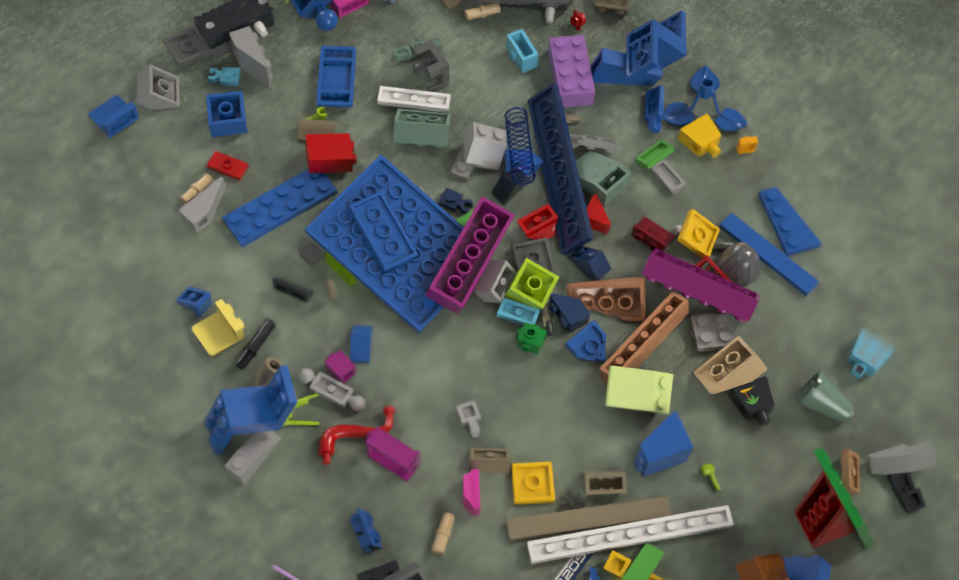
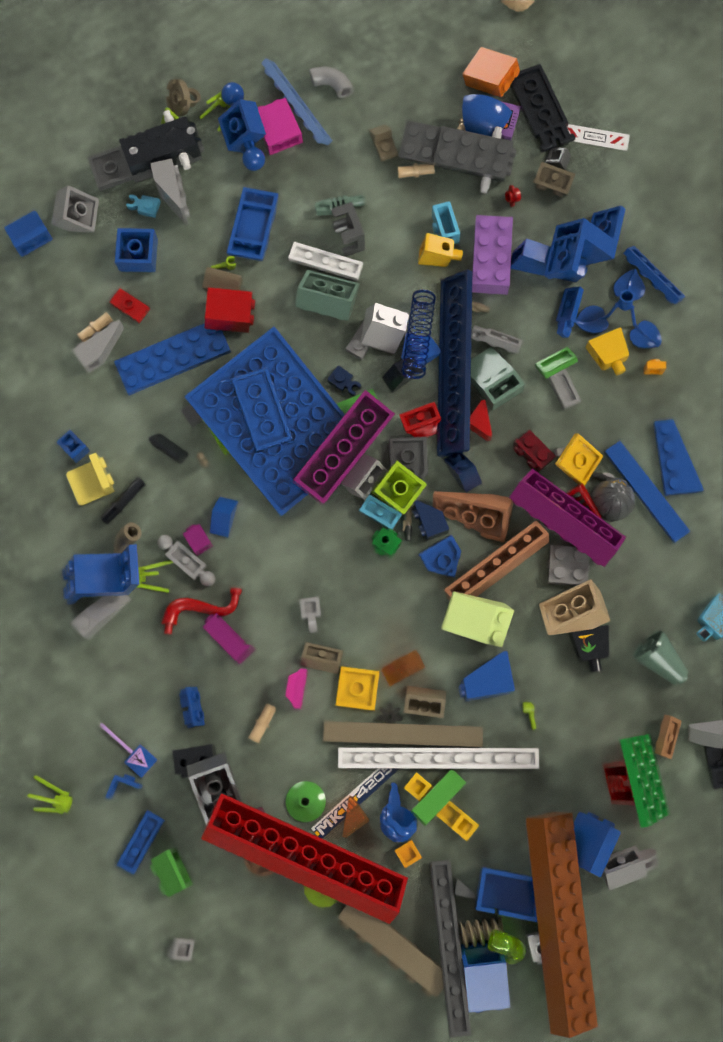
camera: 20 degrees right, 15 degrees up
(519, 74) = (438, 251): none -> yellow torso
(575, 453) = (403, 668): none -> clear orange slope
(718, 64) = (649, 271): none -> blue plate

